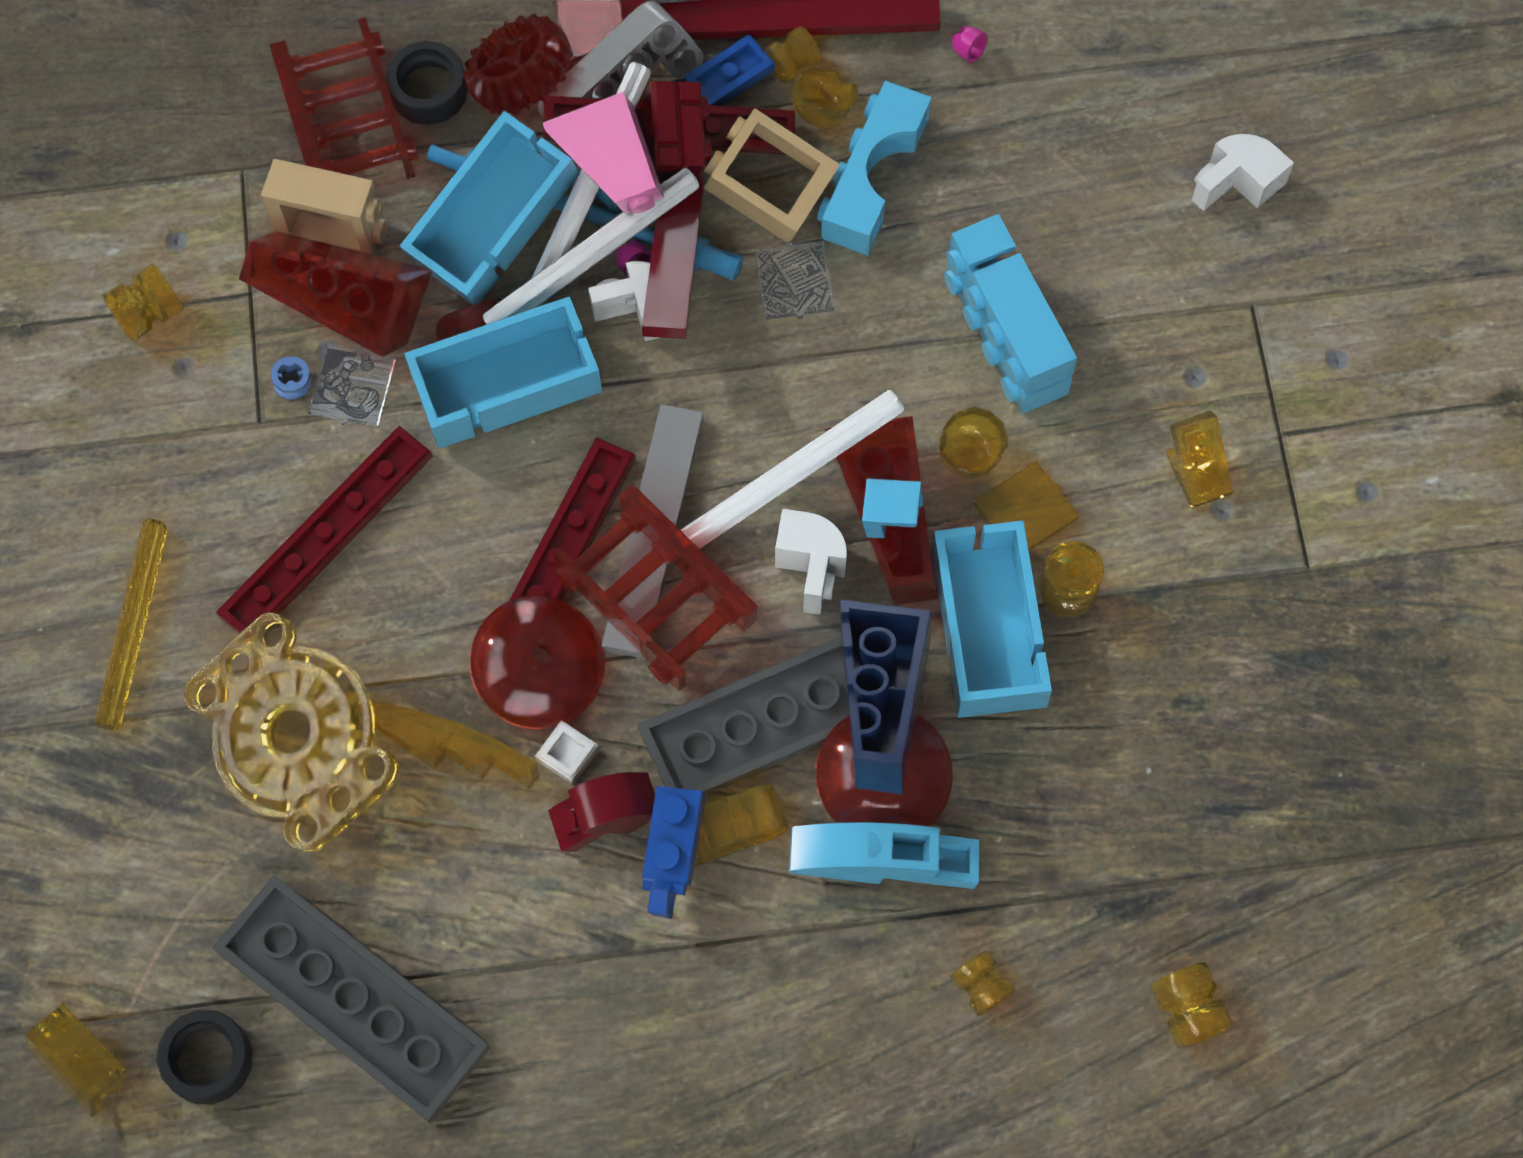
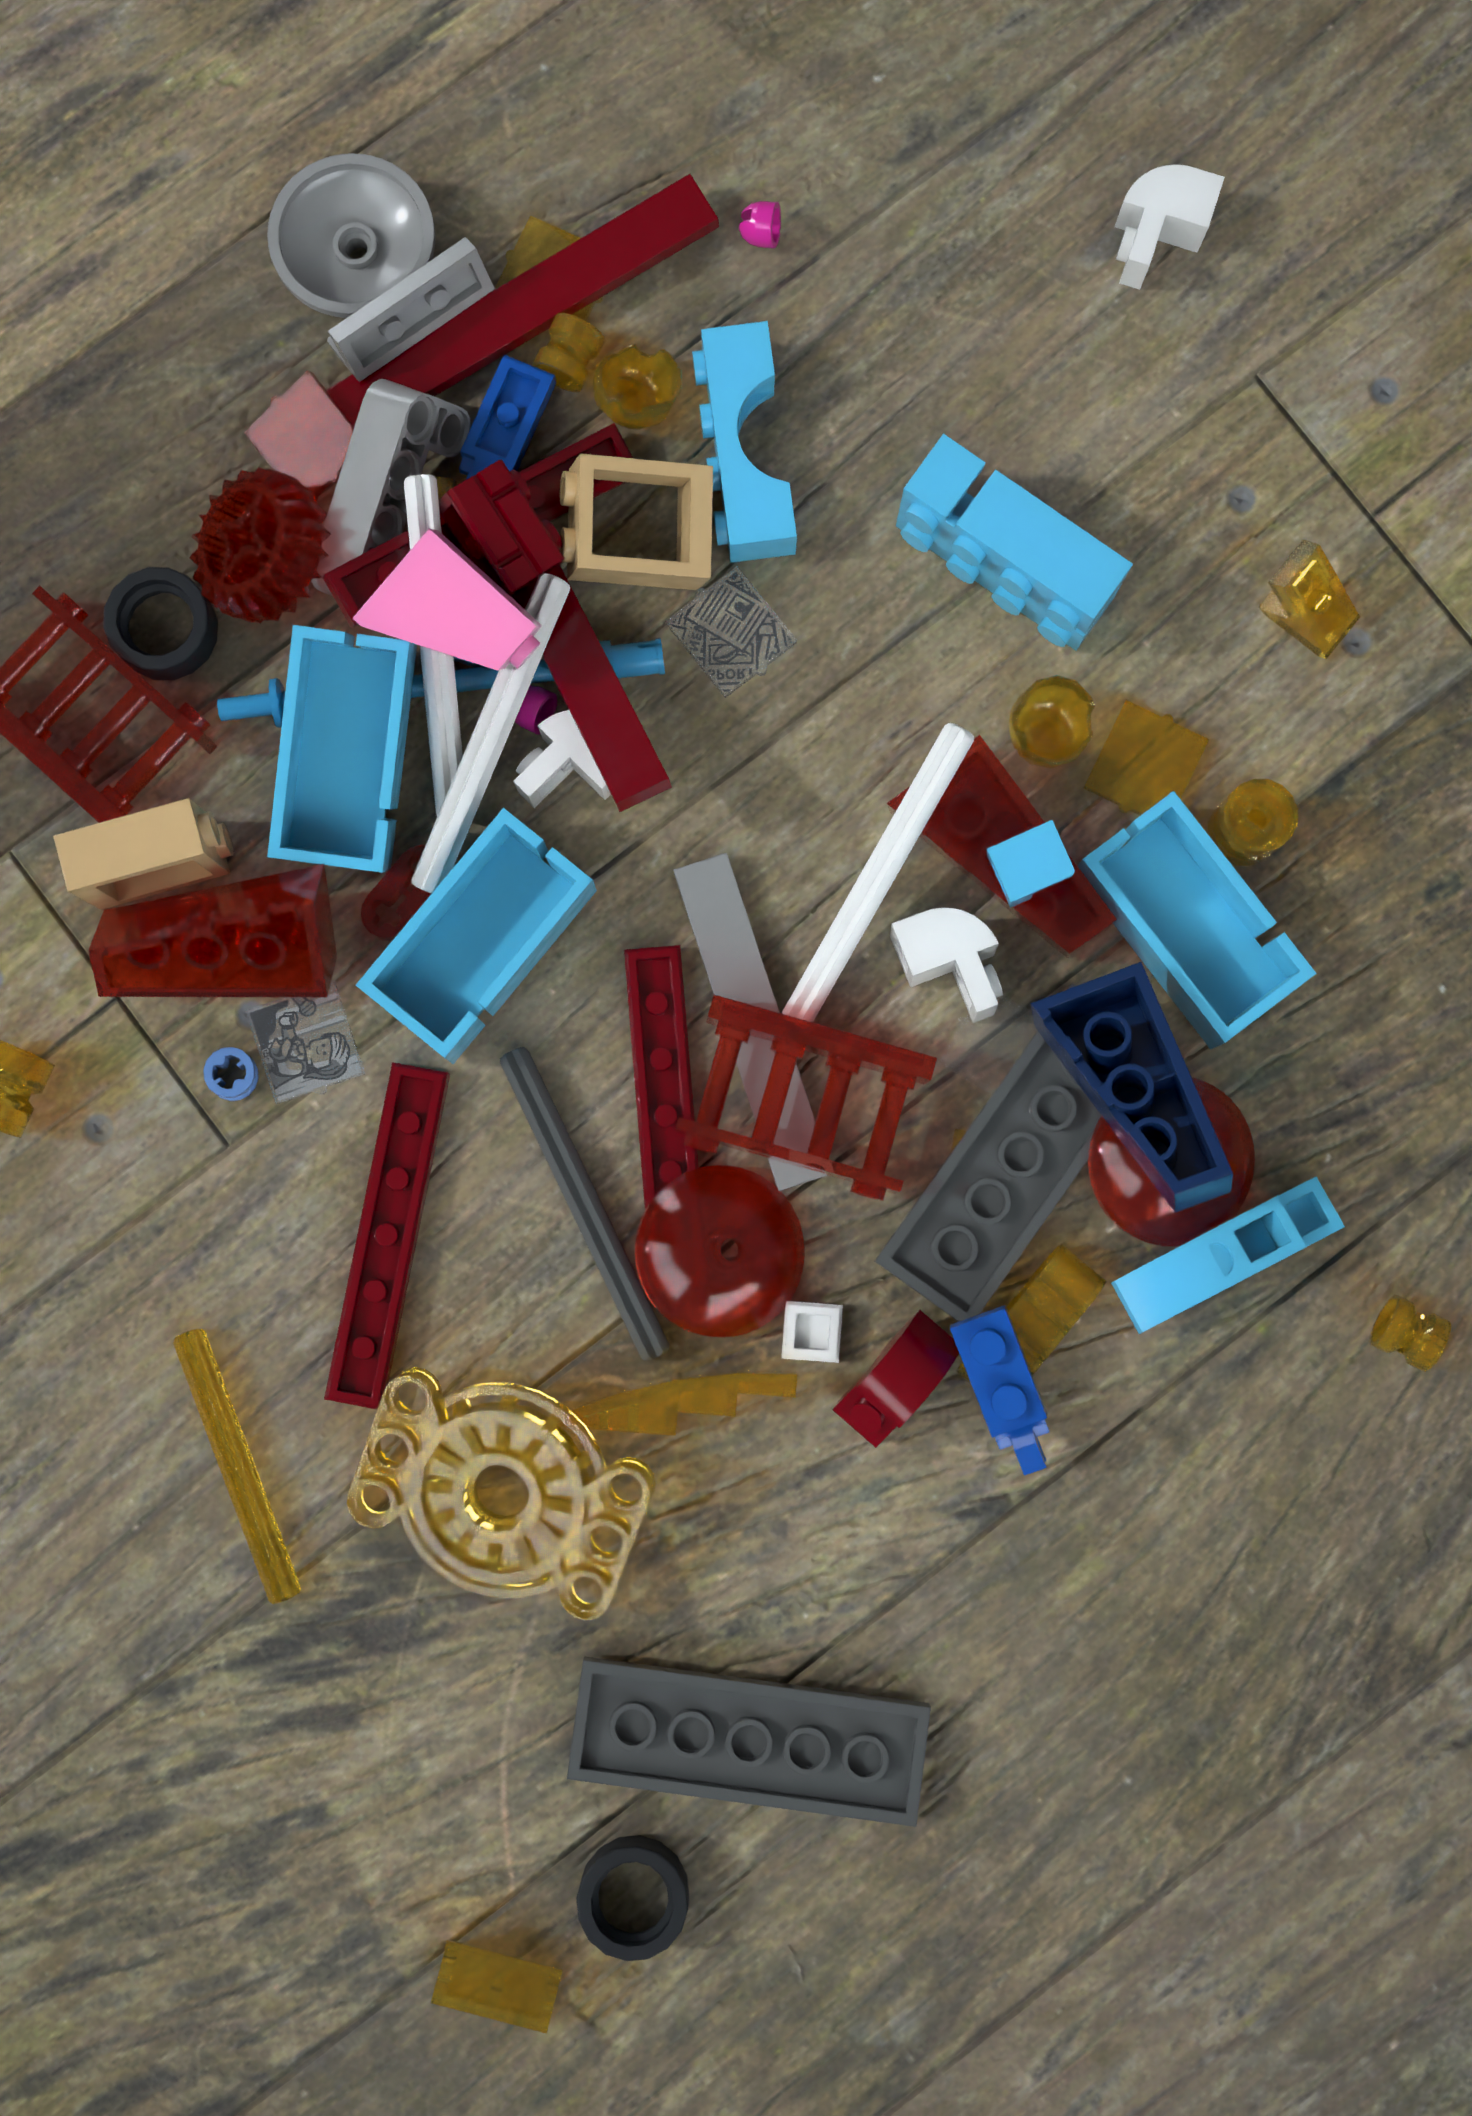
camera: 30 degrees left, 15 degrees up
(467, 585) = (584, 1204): none -> dark grey axle

